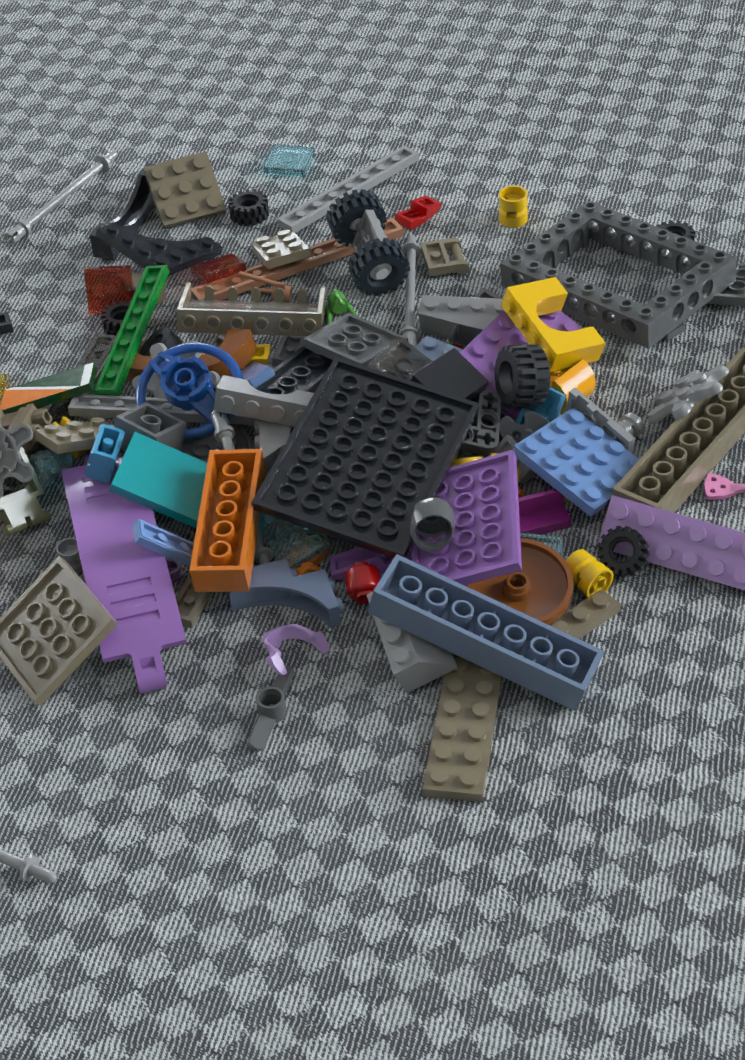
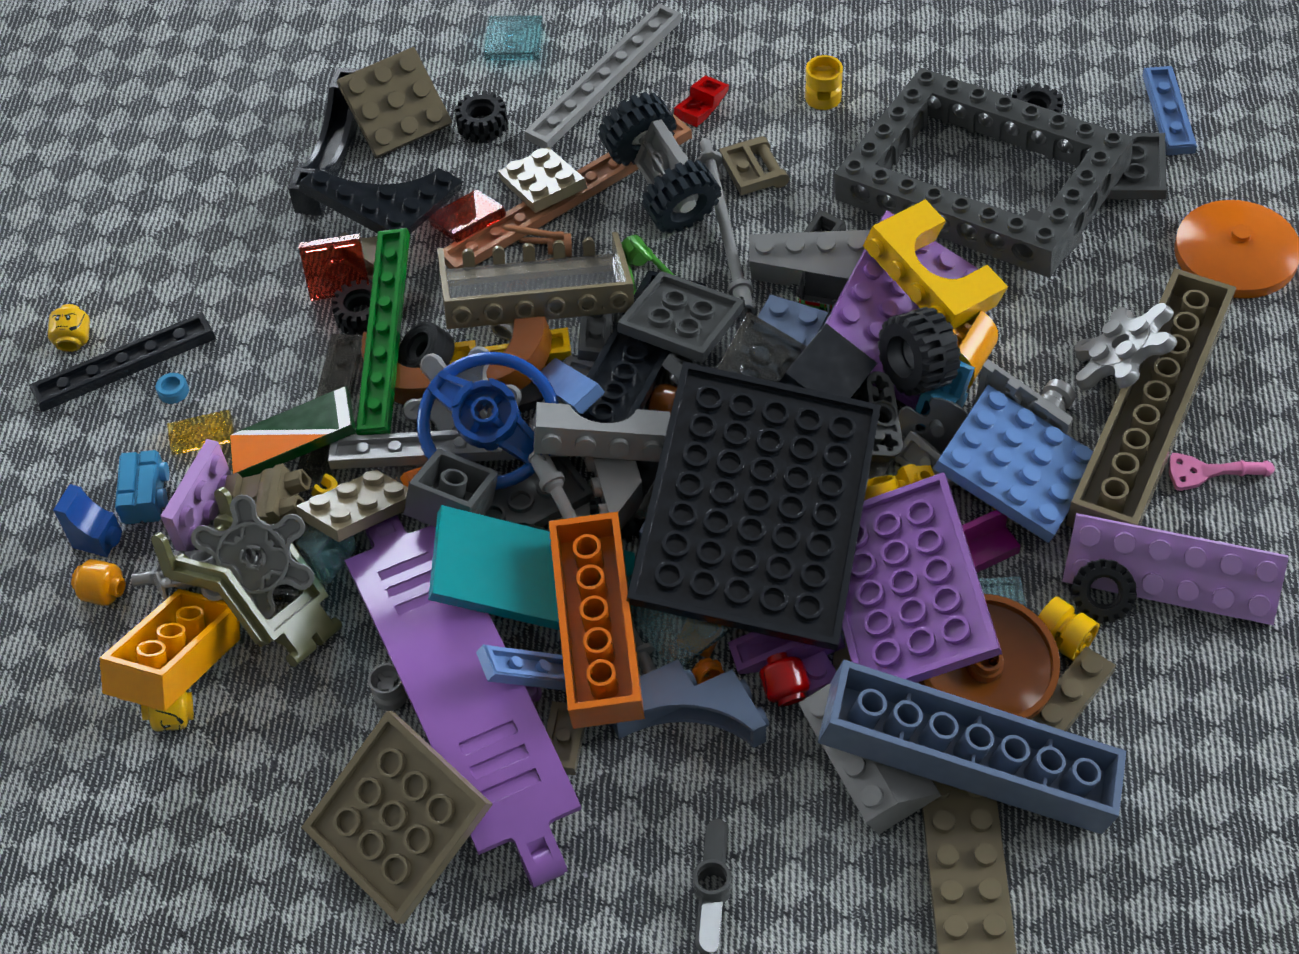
camera: 10 degrees left, 10 degrees up
(23, 227) = (190, 178): light grey bar -> none
(104, 453) = (405, 537): dark azure brick -> none
(274, 638) = (691, 771): lavender helmet -> none
(431, 519) = (865, 589): dark grey helmet -> none

